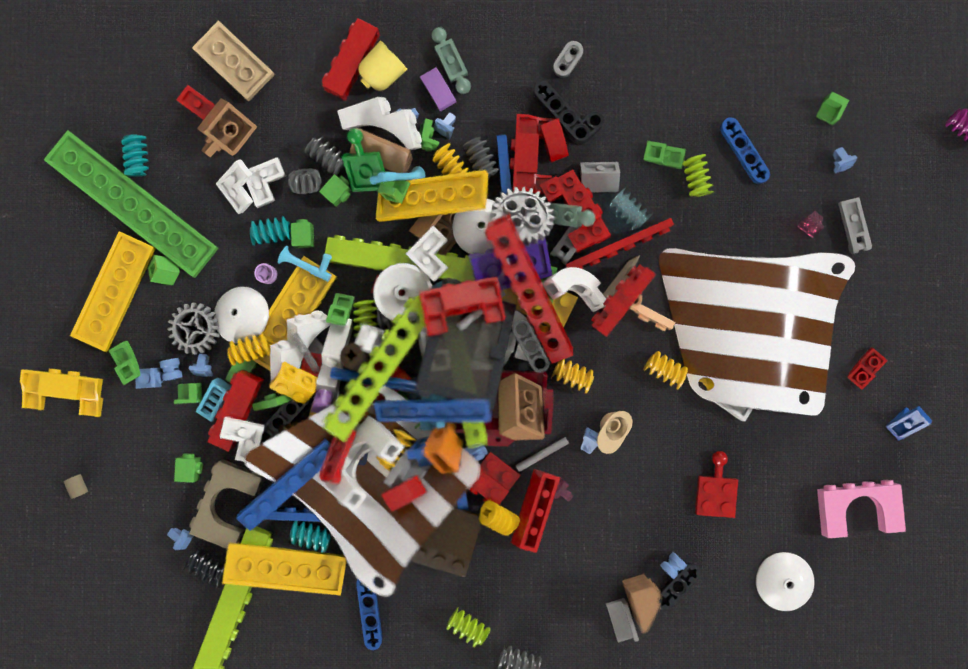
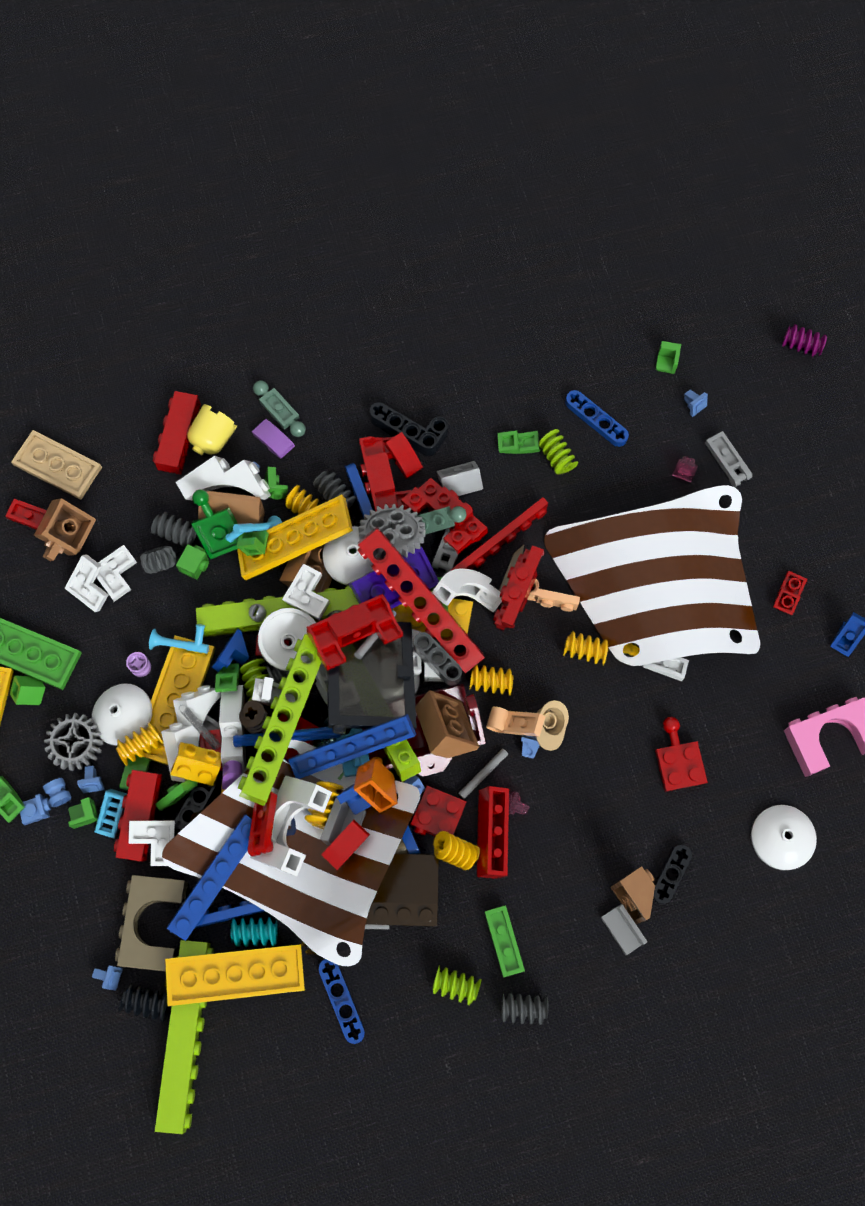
camera: 15 degrees left, 15 degrees down
(188, 468) = (99, 895): bright green brick -> none
(270, 231) = (133, 619): teal piece -> none
(302, 234) = (168, 614): bright green brick -> none
(353, 282) = (233, 650): none -> blue slope
(383, 261) = (260, 615): none -> light grey hinge
(444, 126) = (289, 471): medium blue brick -> none
(518, 602) = (504, 941): none -> bright green plate
(568, 60) = (394, 379): light grey plate -> none
(583, 420) = (515, 722): none -> light nougat plate
(630, 210) = (499, 502): clear light blue piece -> none
(673, 565) = (659, 851): medium blue wheel -> none

